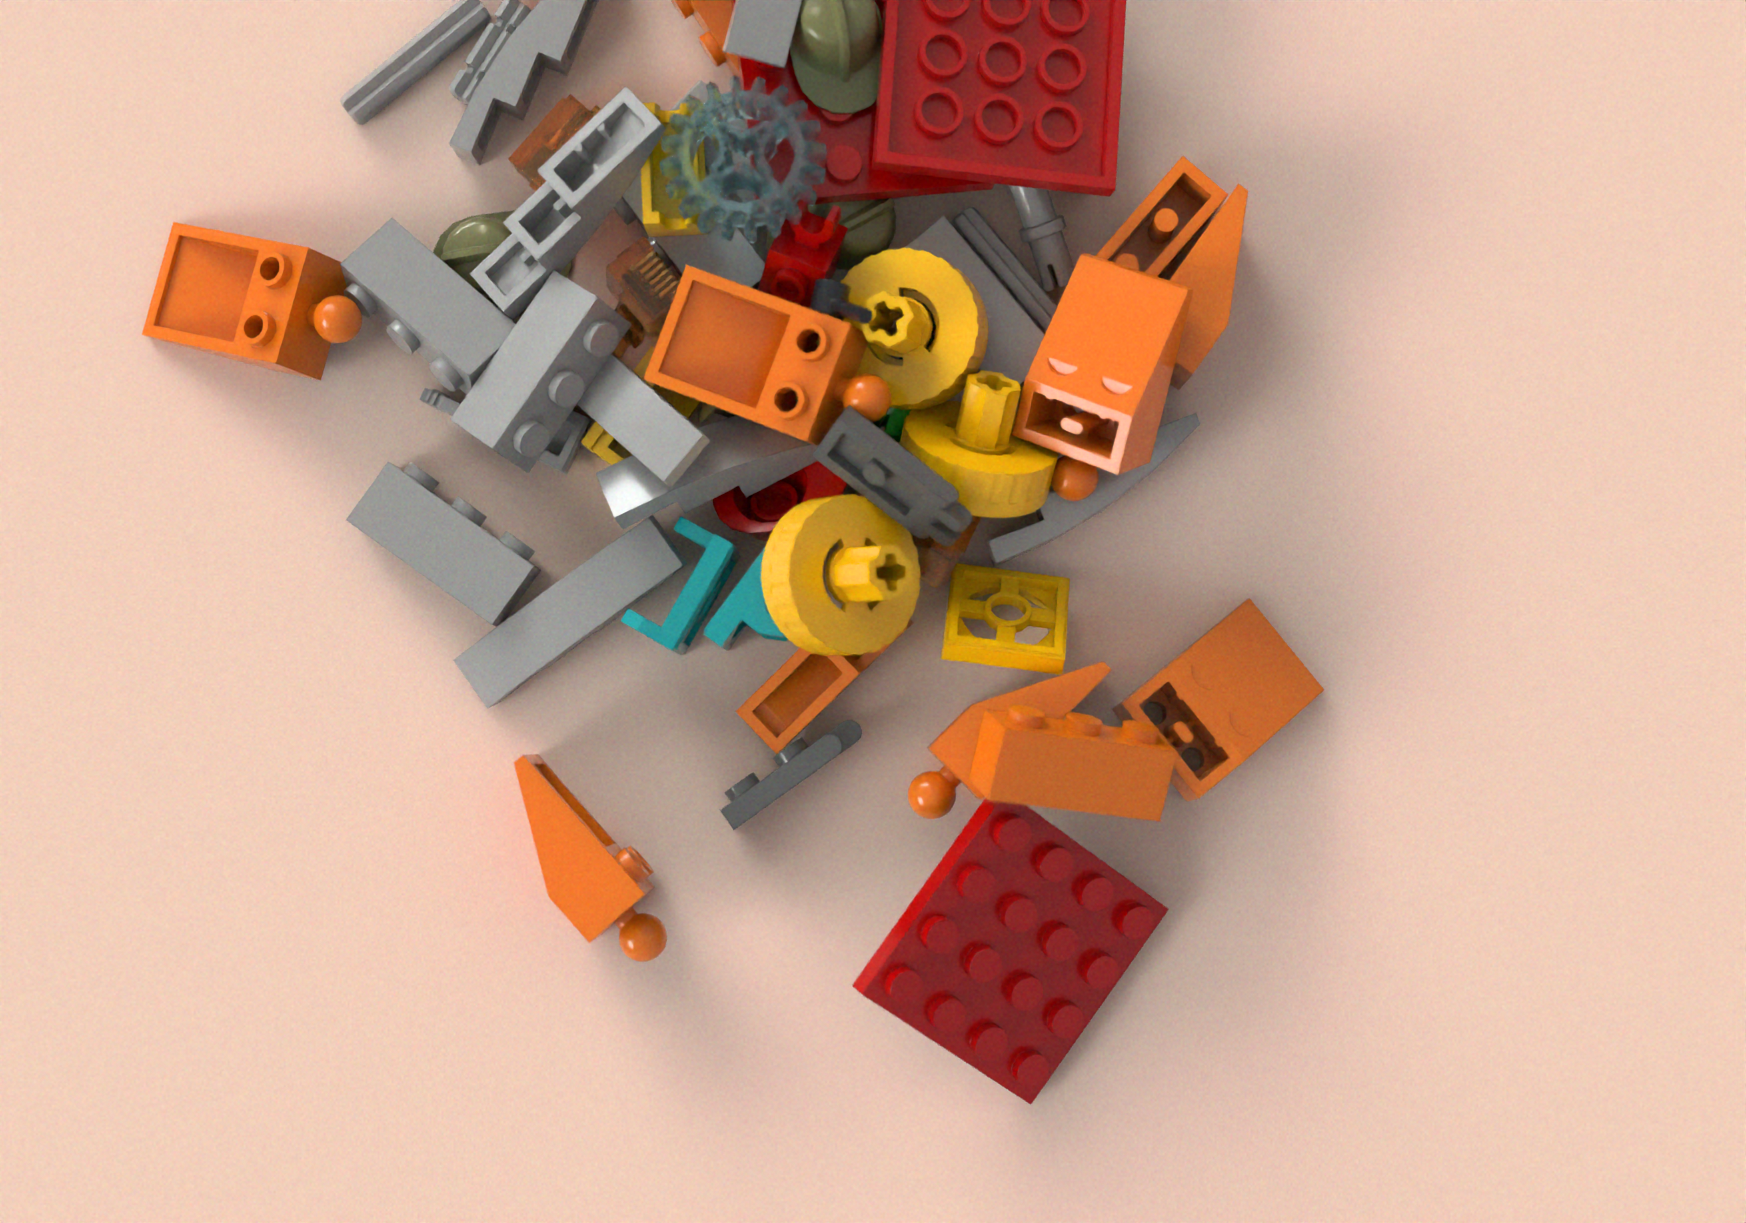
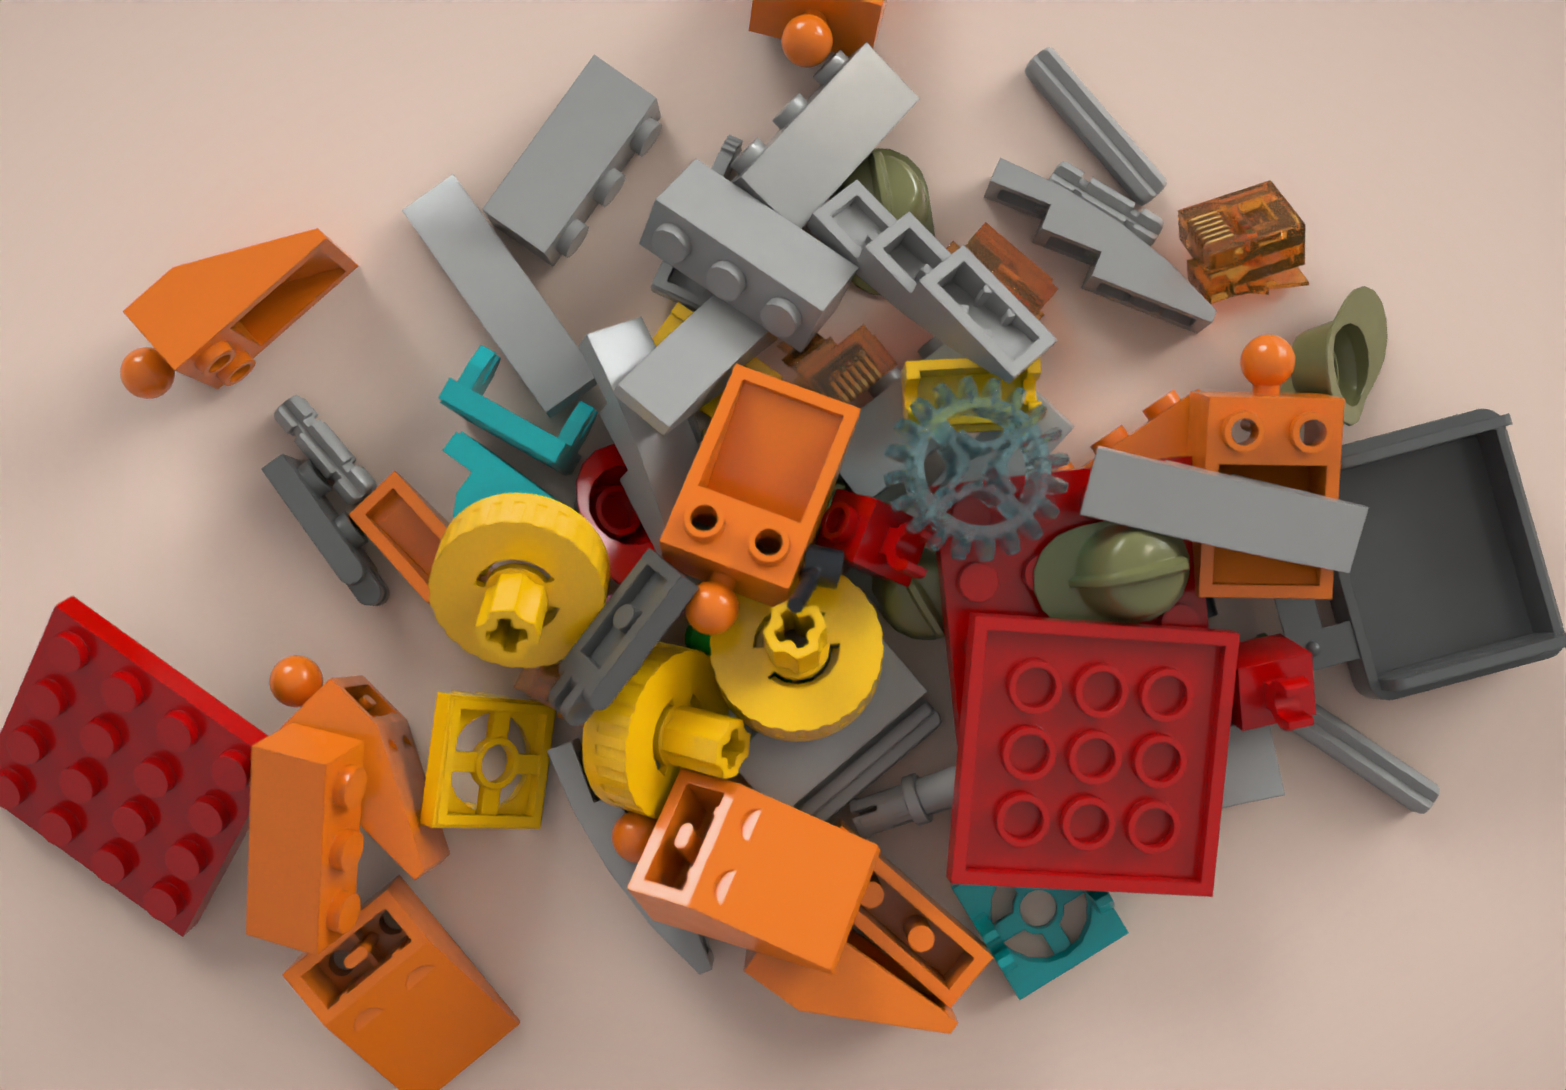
camera: 90 degrees right, 0 degrees up
(714, 780) = (325, 450): none -> light grey axle
(1202, 130) = (1031, 973): none -> teal piece

